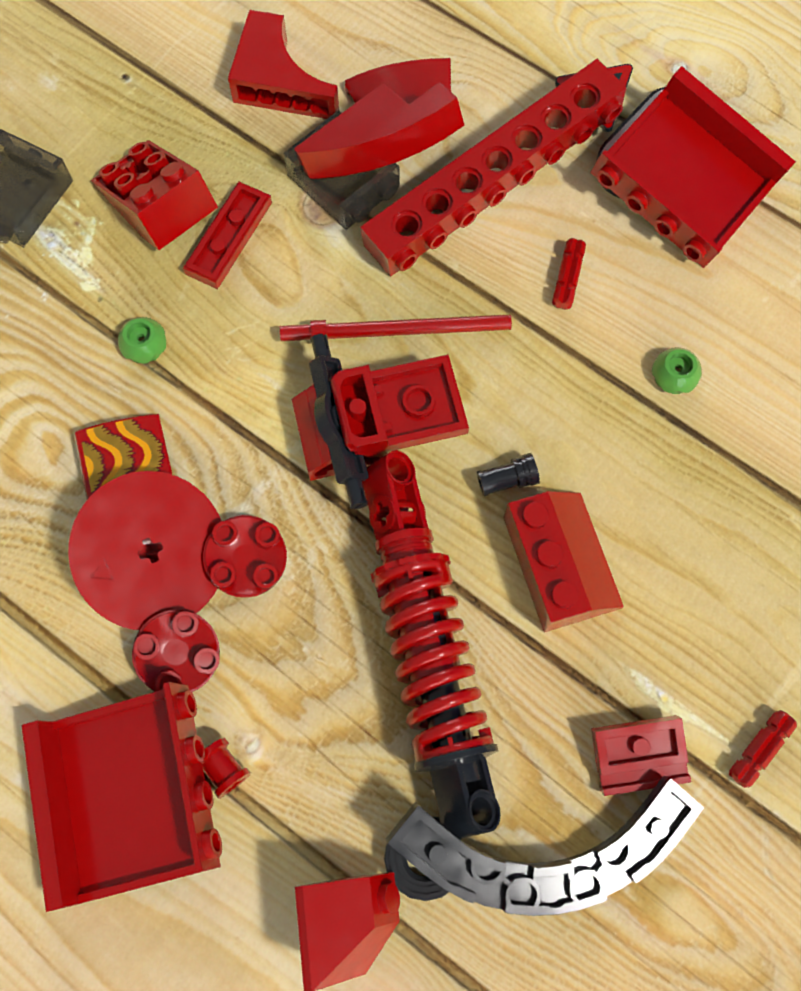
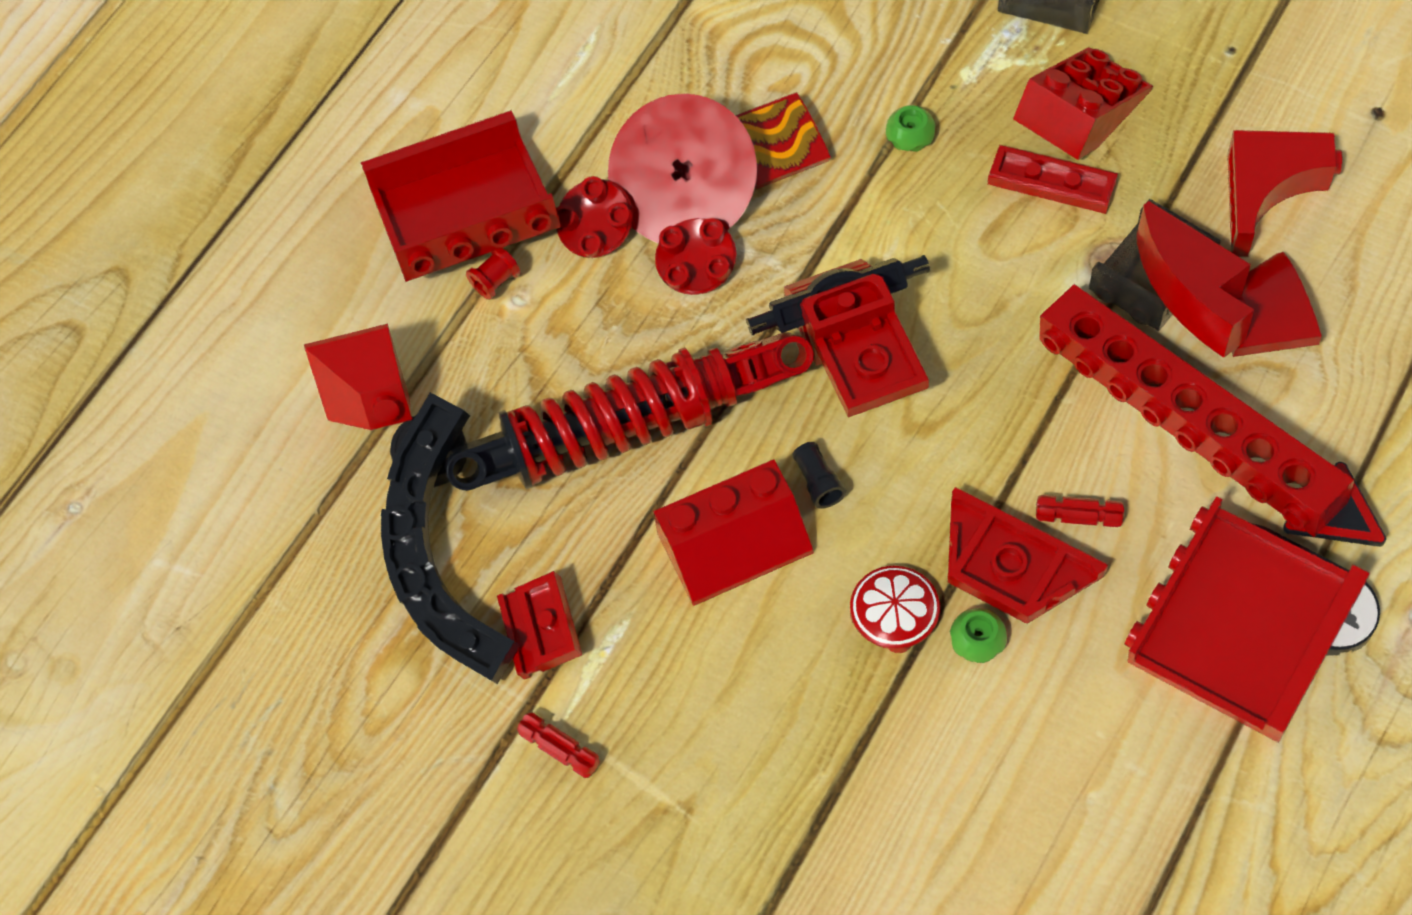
camera: 90 degrees right, 10 degrees down
(395, 327) = (953, 282): red bar -> none
(612, 333) = (1013, 561): none -> red wing
(645, 432) = (894, 607): none -> dish

